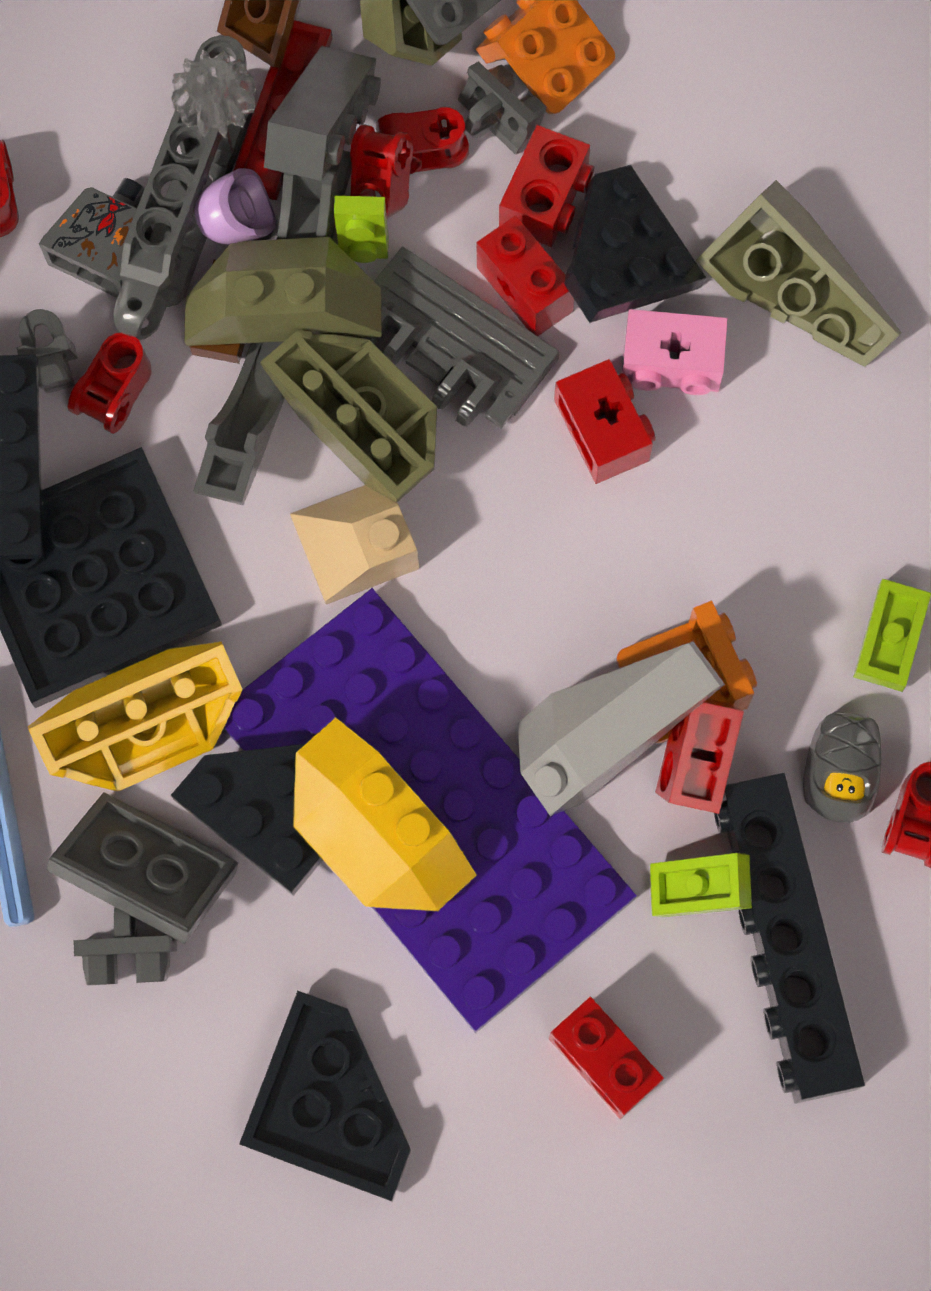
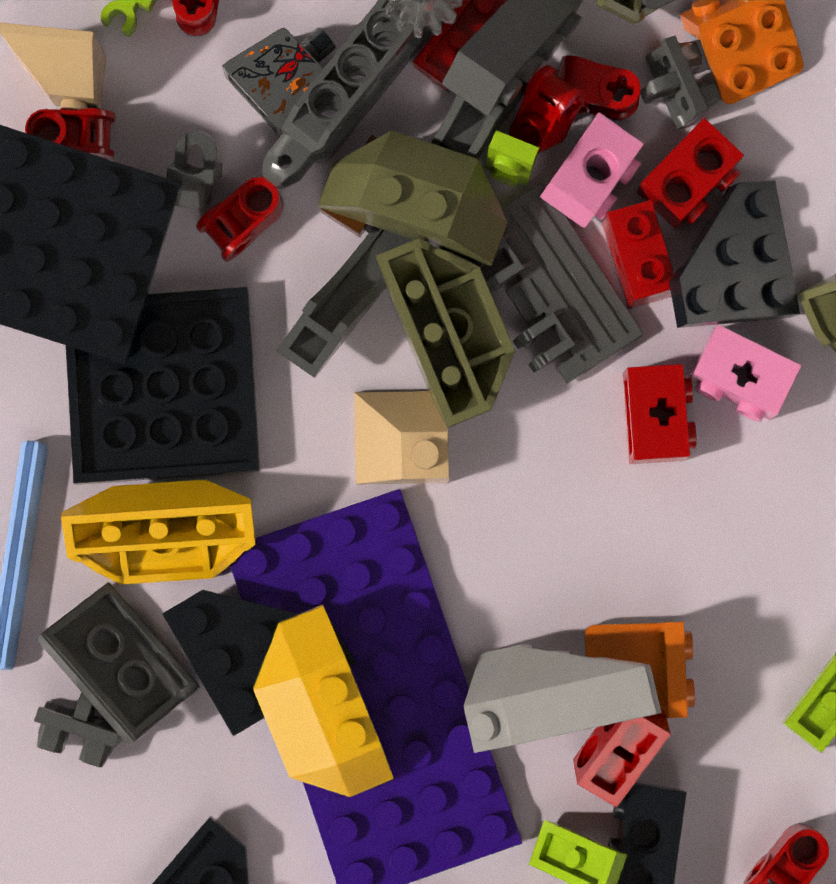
camera: 15 degrees right, 10 degrees up
(235, 208) = (406, 100): lavender piece -> none
(454, 191) = (602, 147): none -> bright pink brick
(843, 767) = (740, 800): dark grey piece -> none

